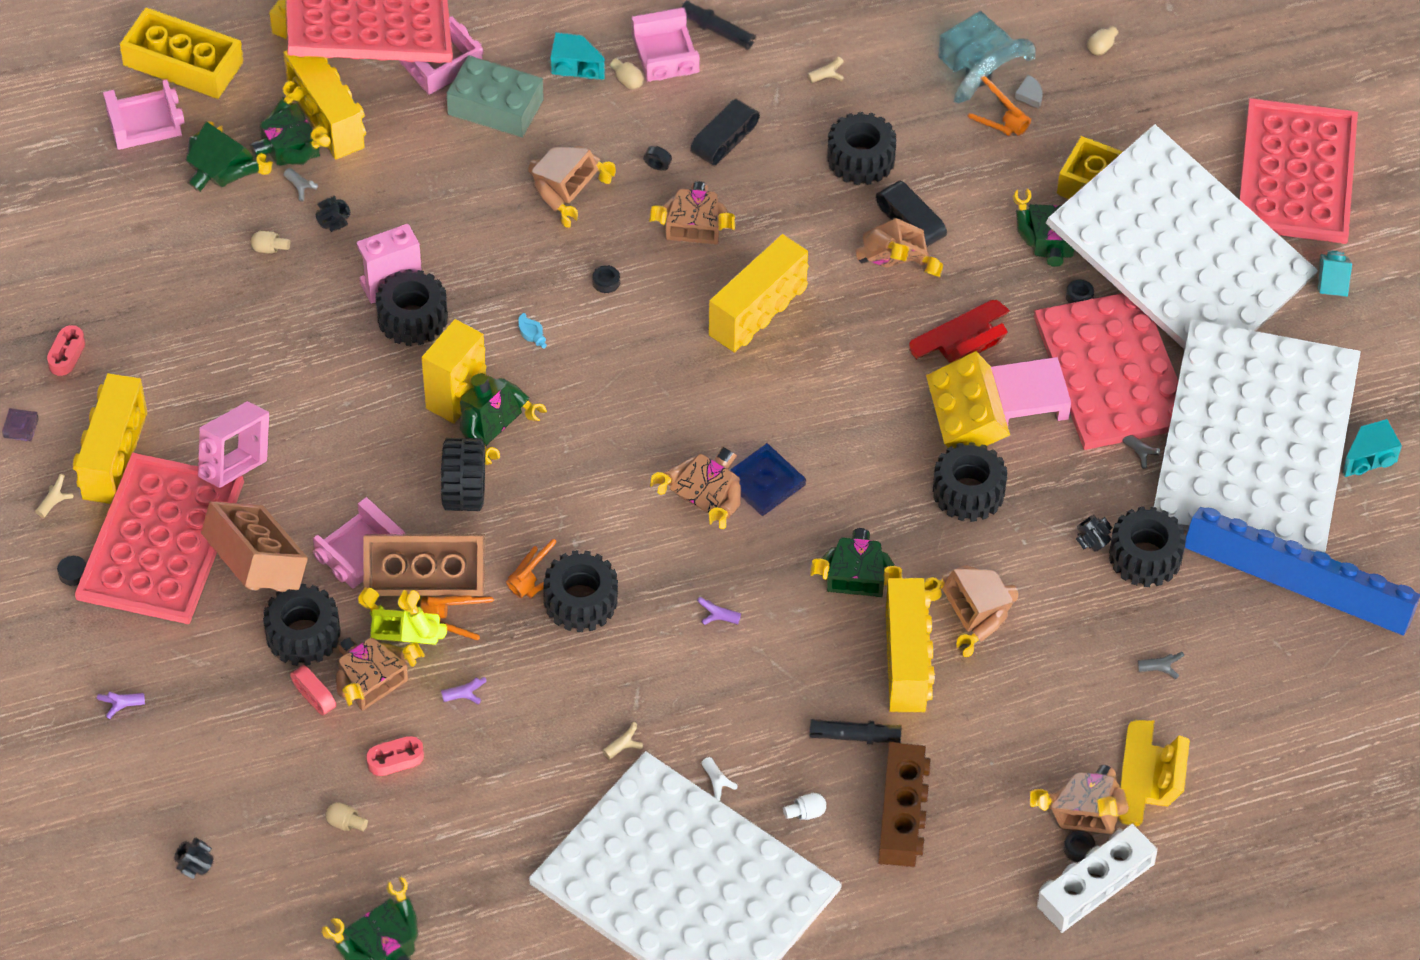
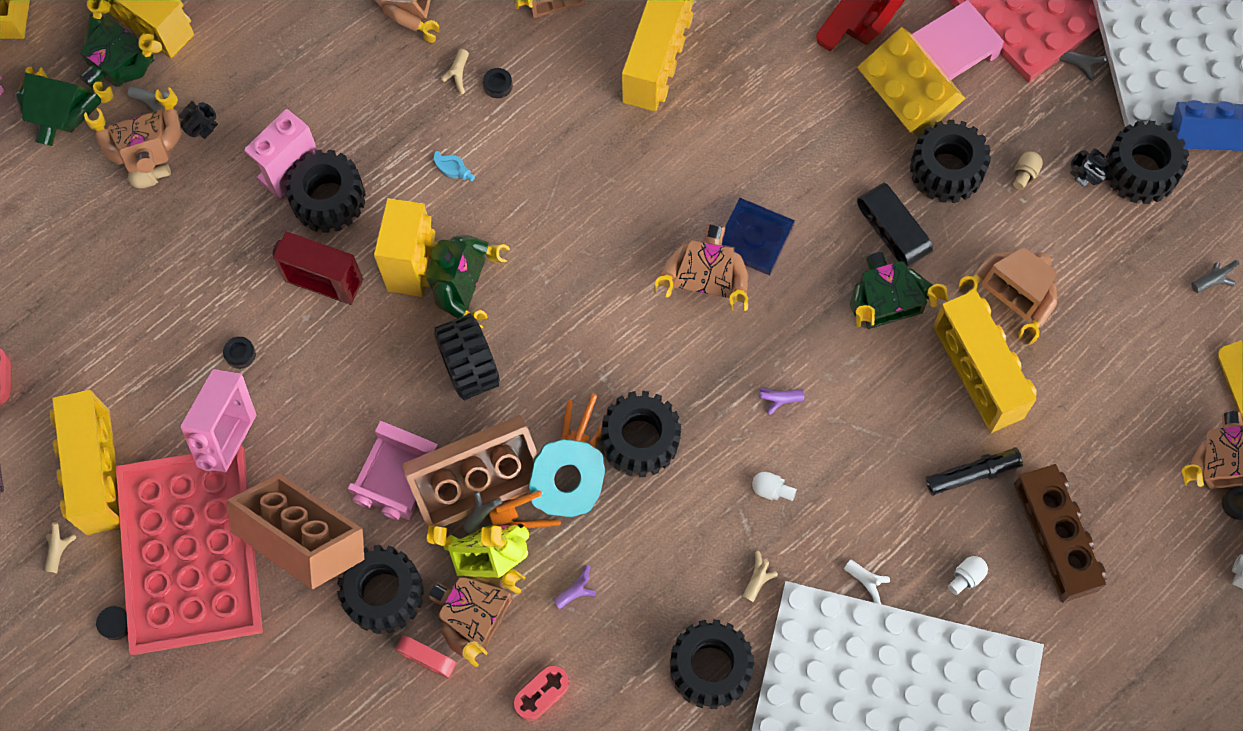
camera: 20 degrees left, 15 degrees up
(277, 212) = (140, 140): none -> nougat torso
(278, 407) = (239, 352): none -> black tile
(374, 363) = (318, 267): none -> dark red window
(422, 590) = (480, 512): none -> dark grey bar
(524, 604) = (546, 464): none -> piece
(547, 763) = (720, 637): none -> black tyre
(575, 255) = (457, 70): none -> tan bar
(673, 677) = (772, 487): none -> white cylinder
(893, 515) = (894, 224): none -> black beam
(1039, 516) = (1027, 169): none -> tan cylinder

